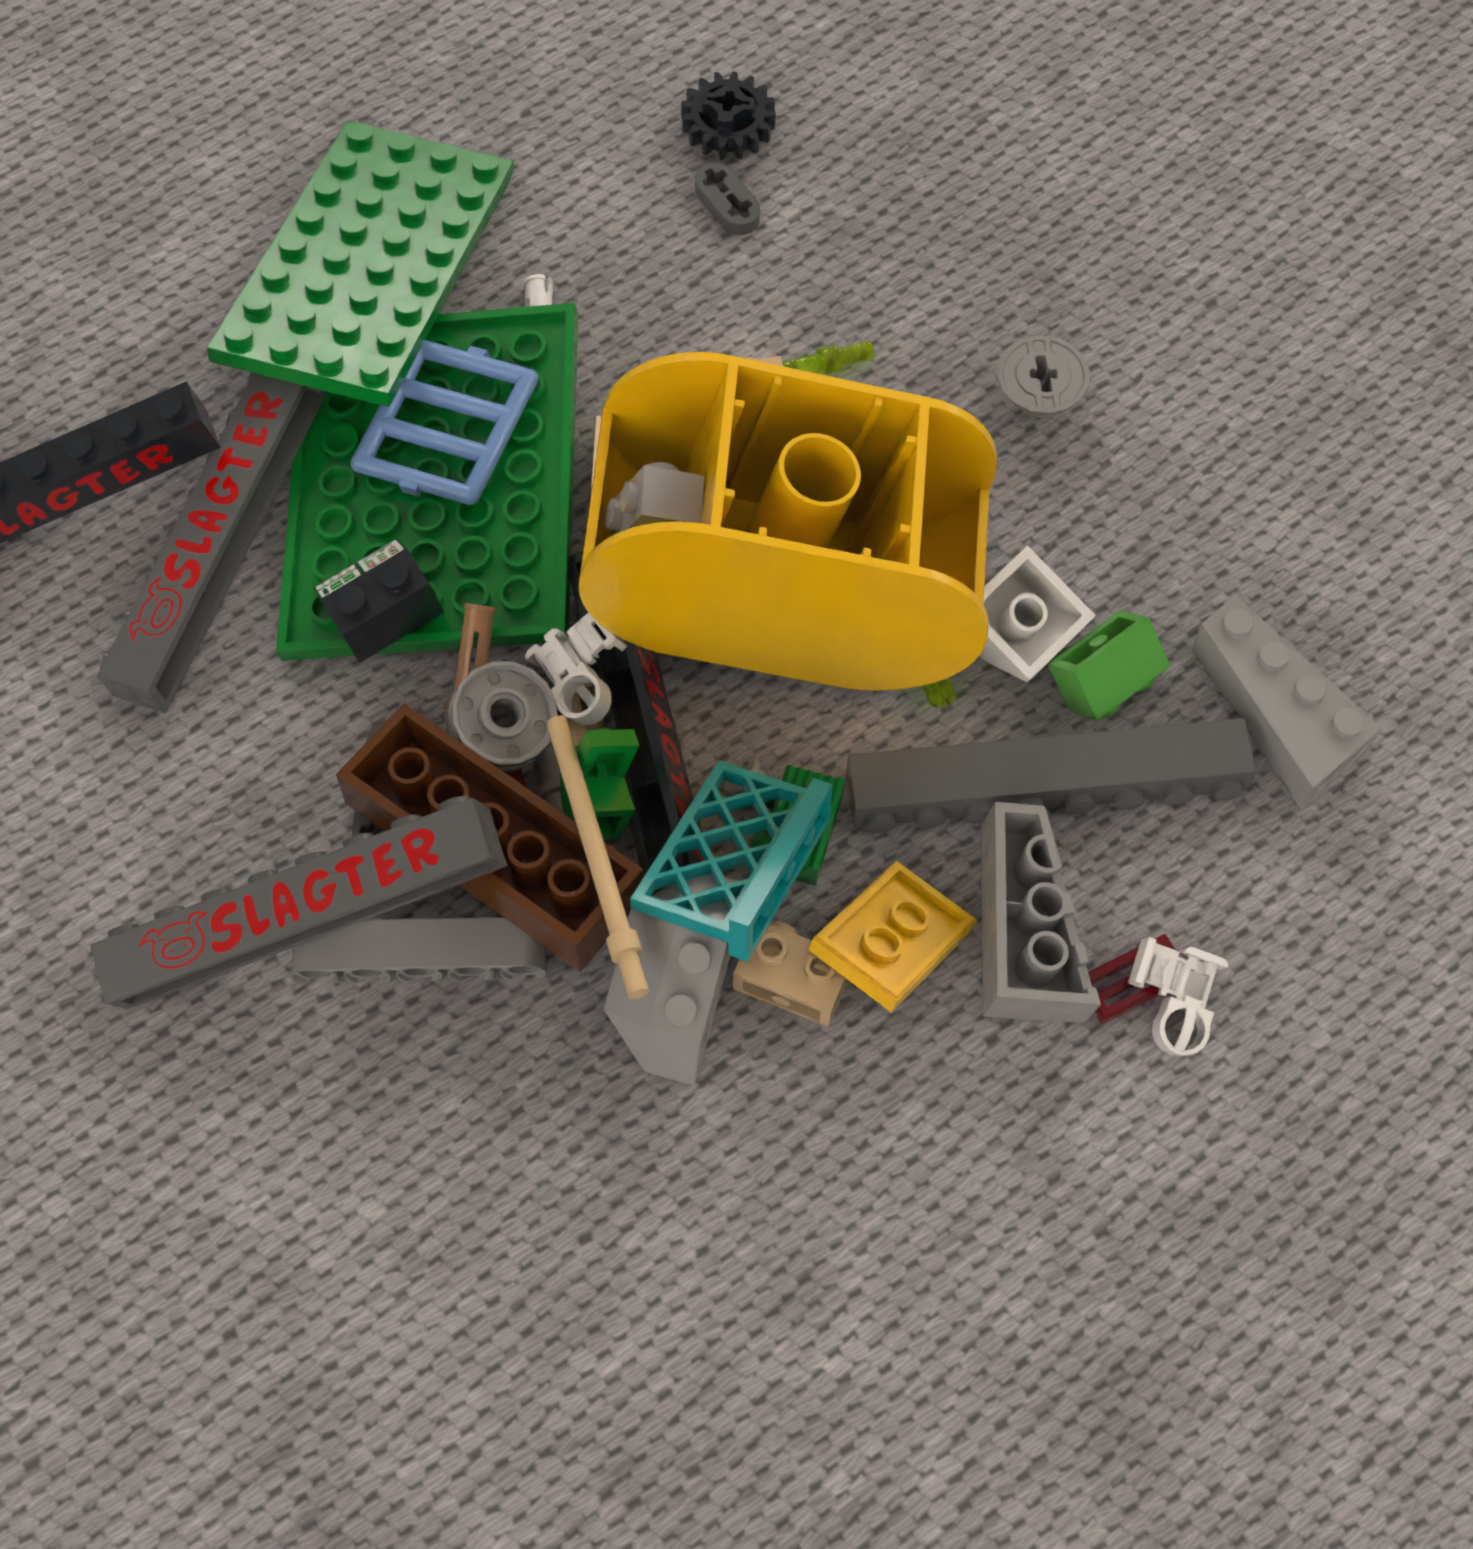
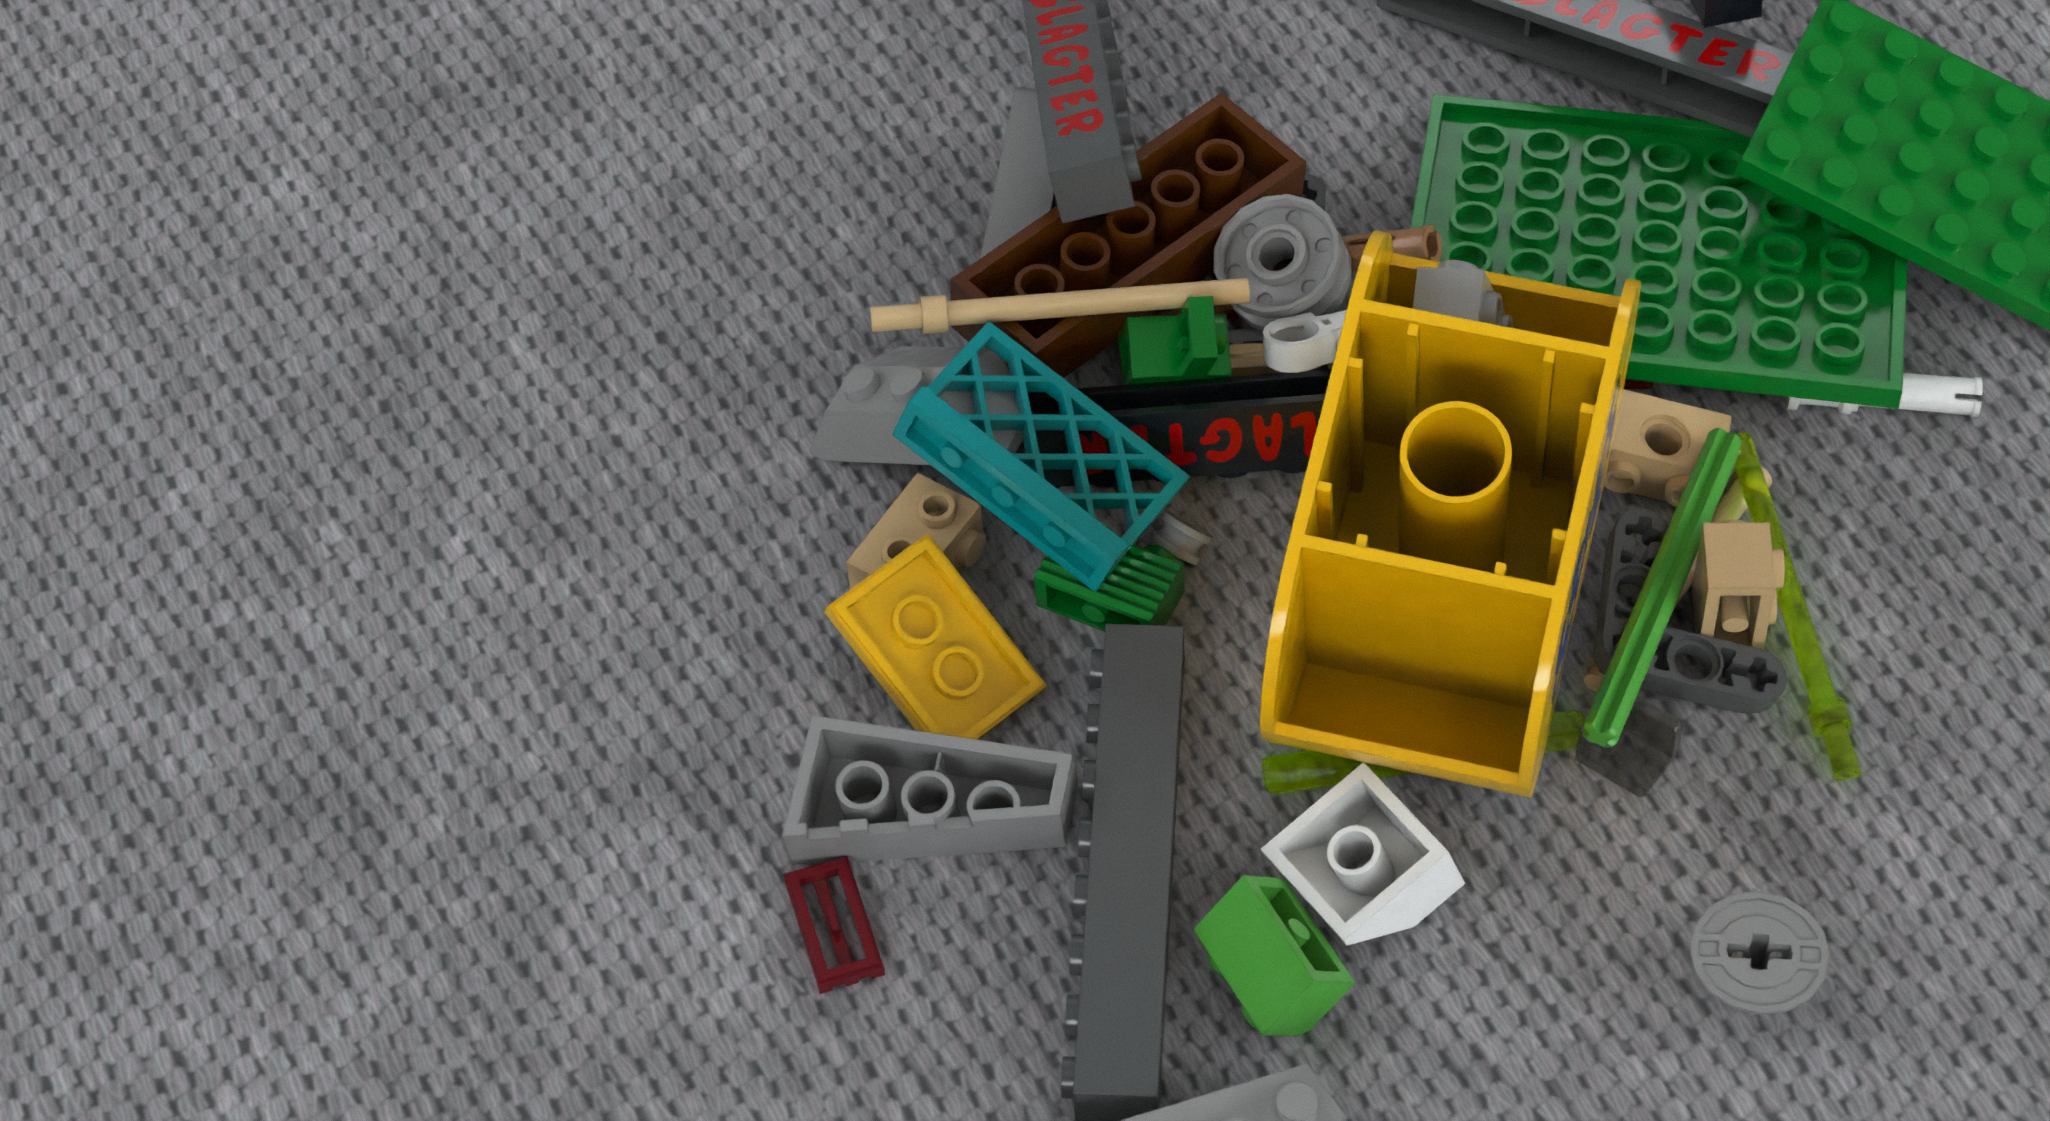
camera: 105 degrees right, 10 degrees down
(379, 599) = (1469, 162): black slope -> none
(485, 455) = (1725, 300): medium blue bar -> none
(1187, 982) = (811, 970): white piece -> none

